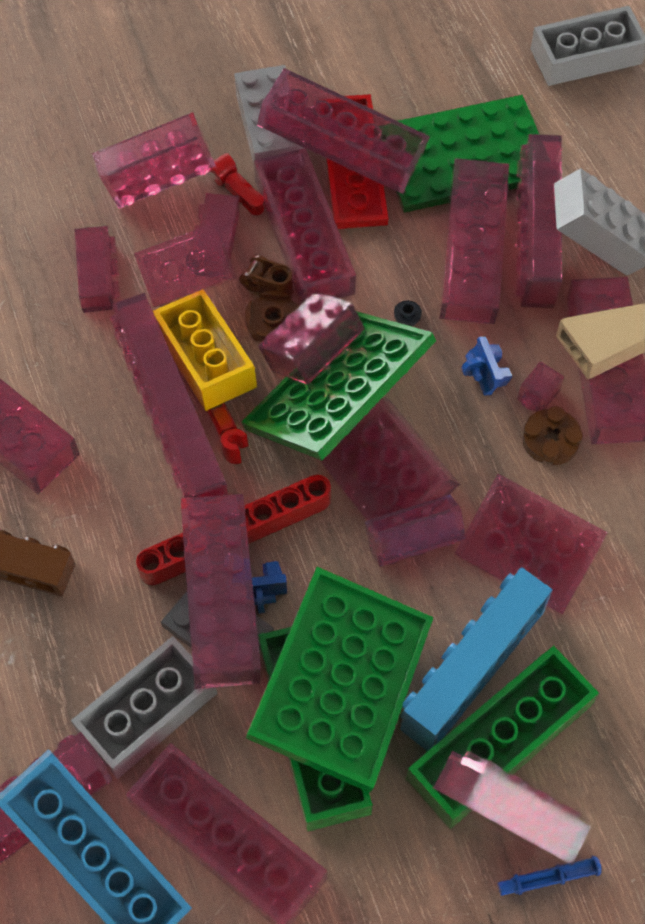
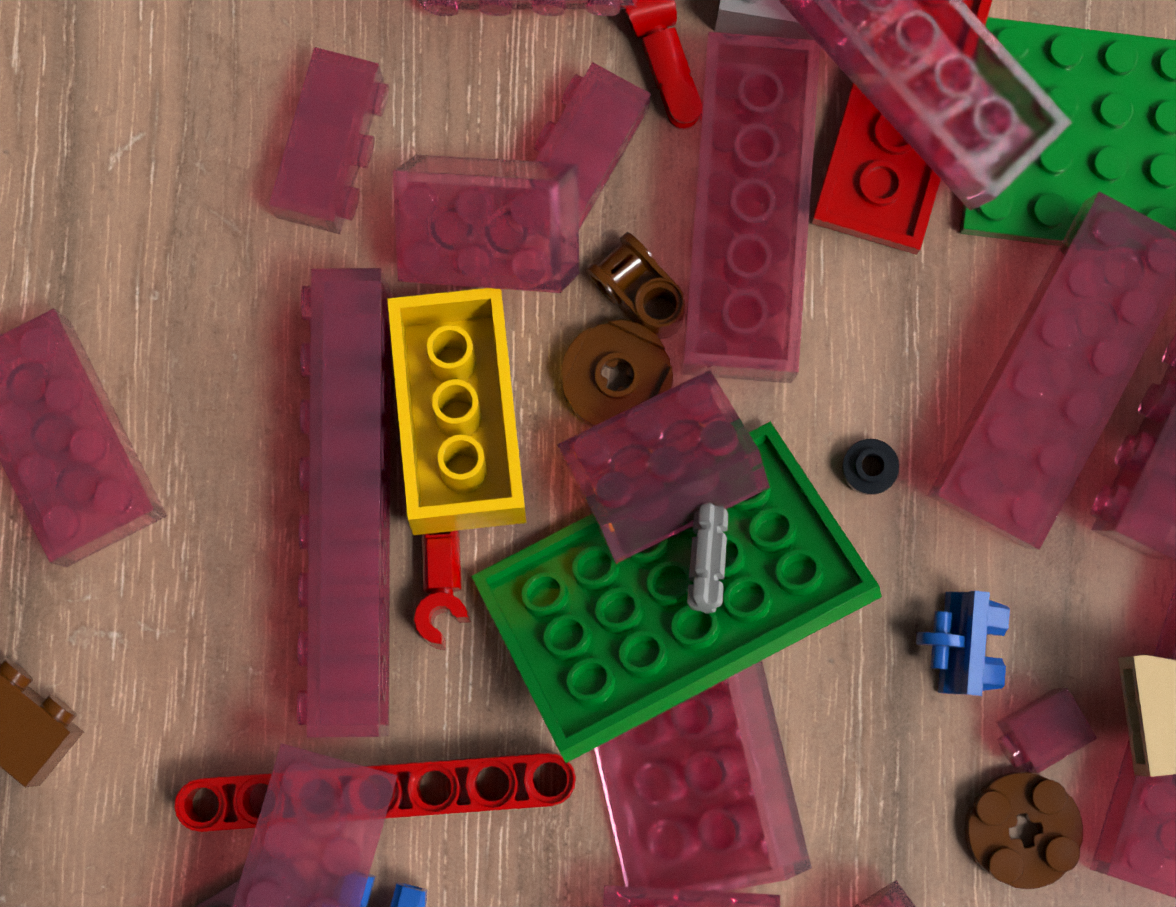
camera: 20 degrees right, 20 degrees up
(349, 358) = (708, 558): none -> light grey axle

